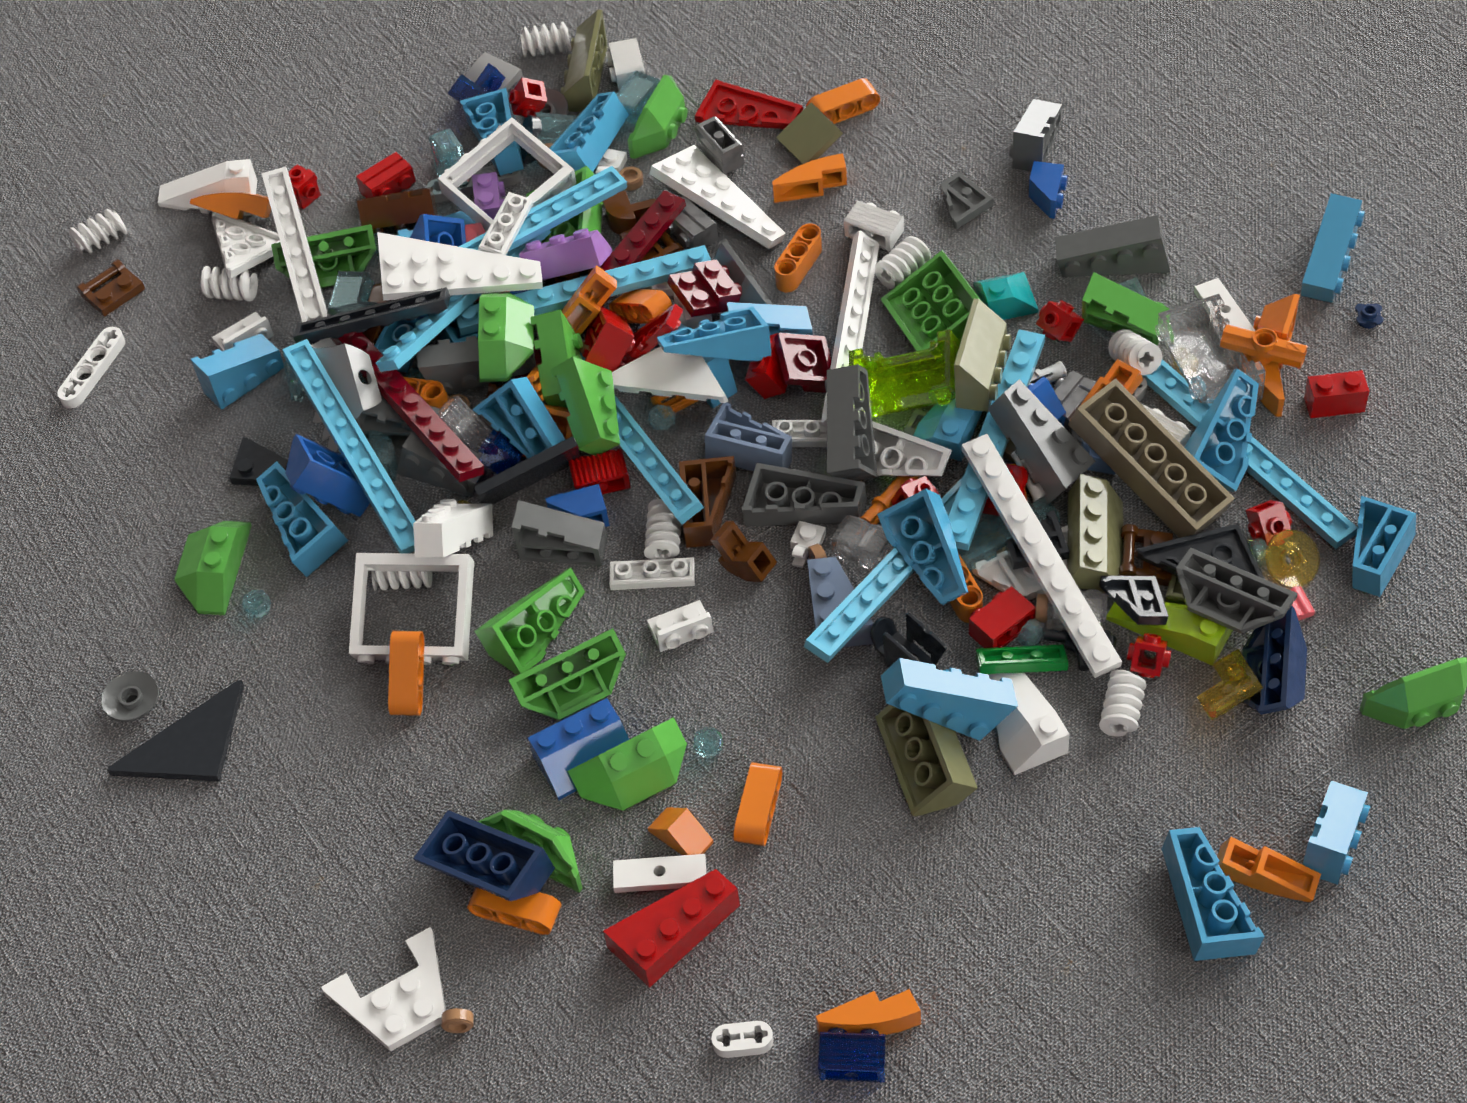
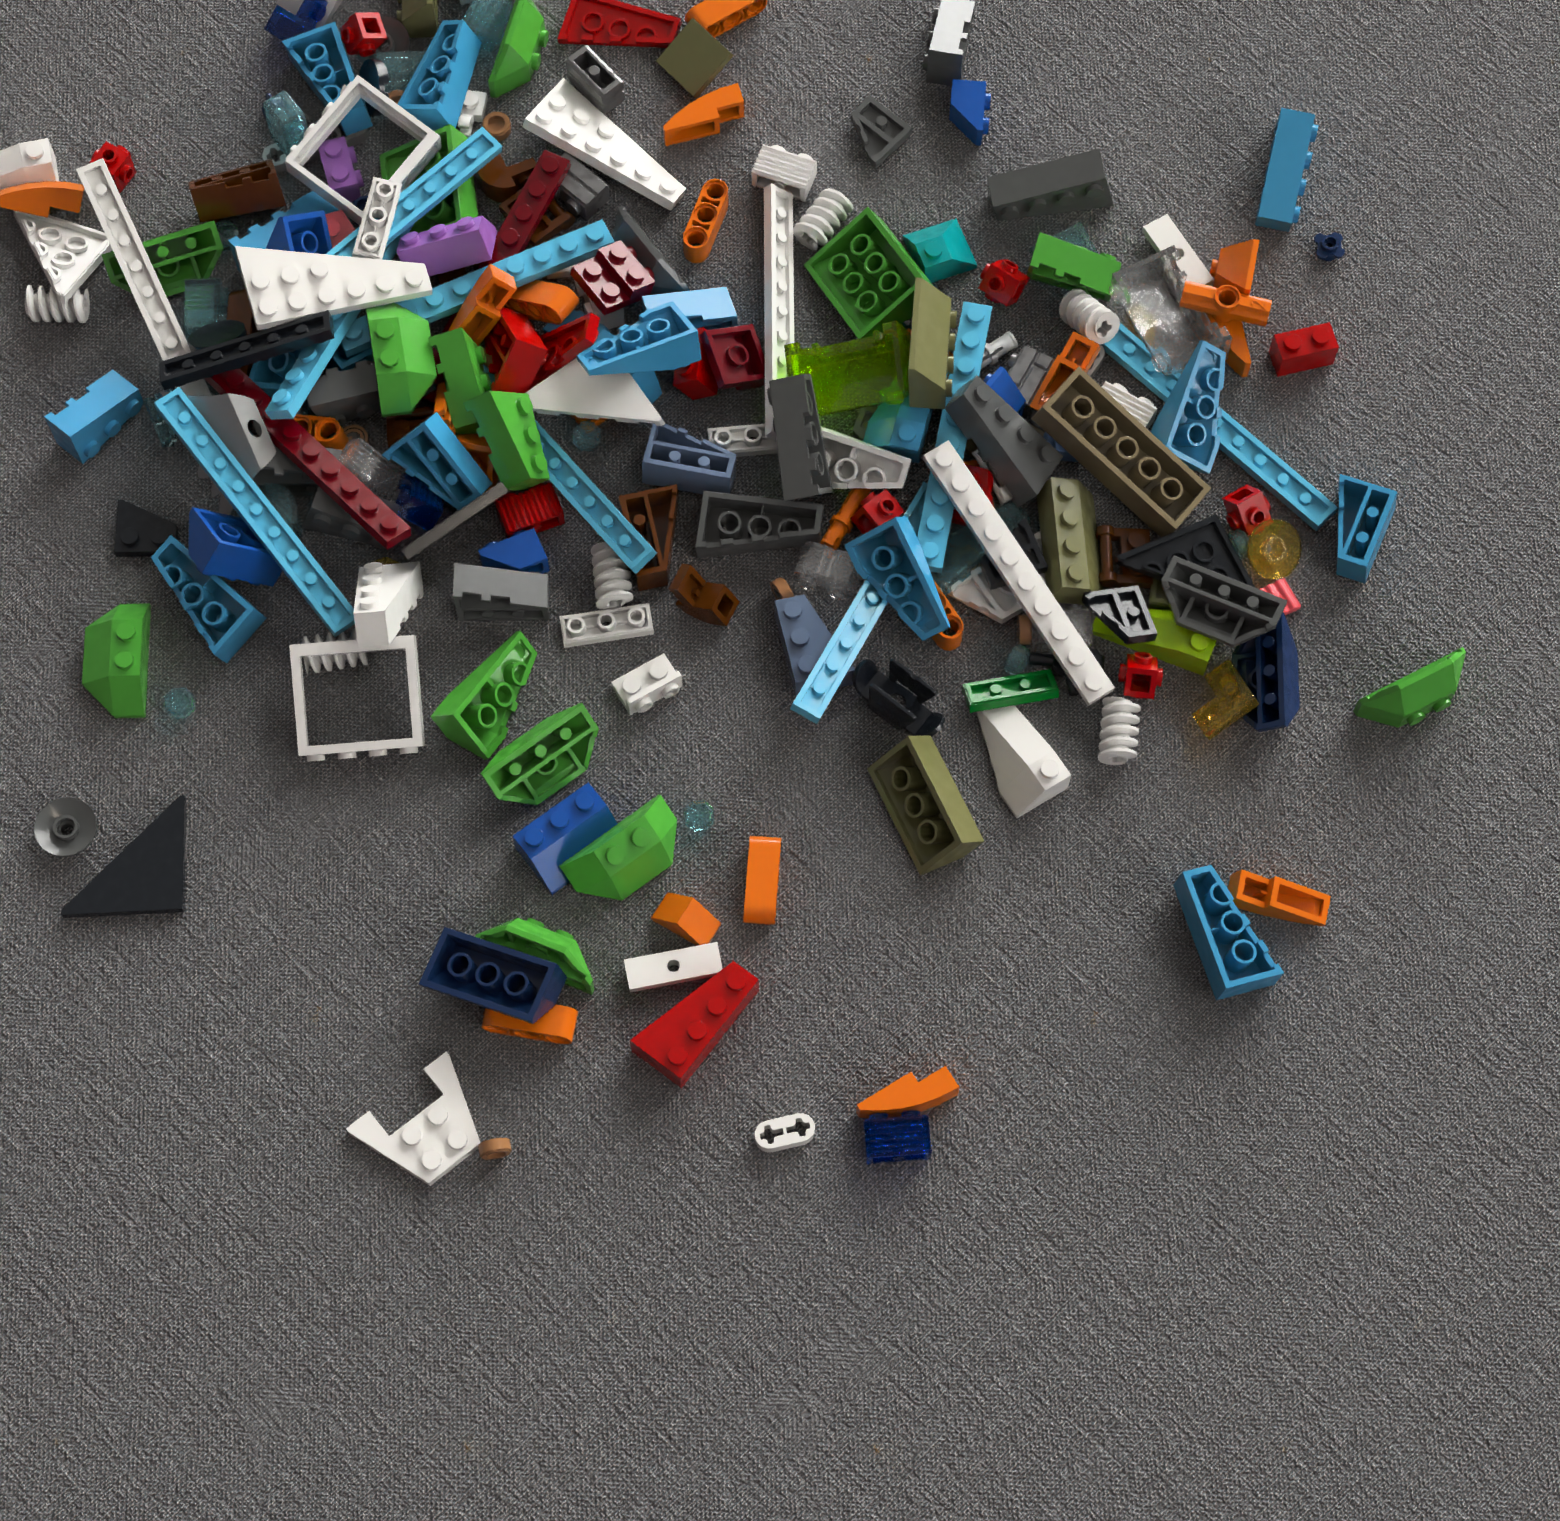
camera: 15 degrees left, 15 degrees up
(244, 329) = (87, 367): white bracket -> none
(386, 177) = (212, 148): red brick -> none
(406, 673) = (366, 772): orange beam -> none
(803, 537) = (765, 569): white plate -> none
(948, 697) = (947, 749): dark azure wedge -> none
(1001, 619) = (984, 647): red brick -> none
(1336, 831) = (1342, 850): wedge -> none

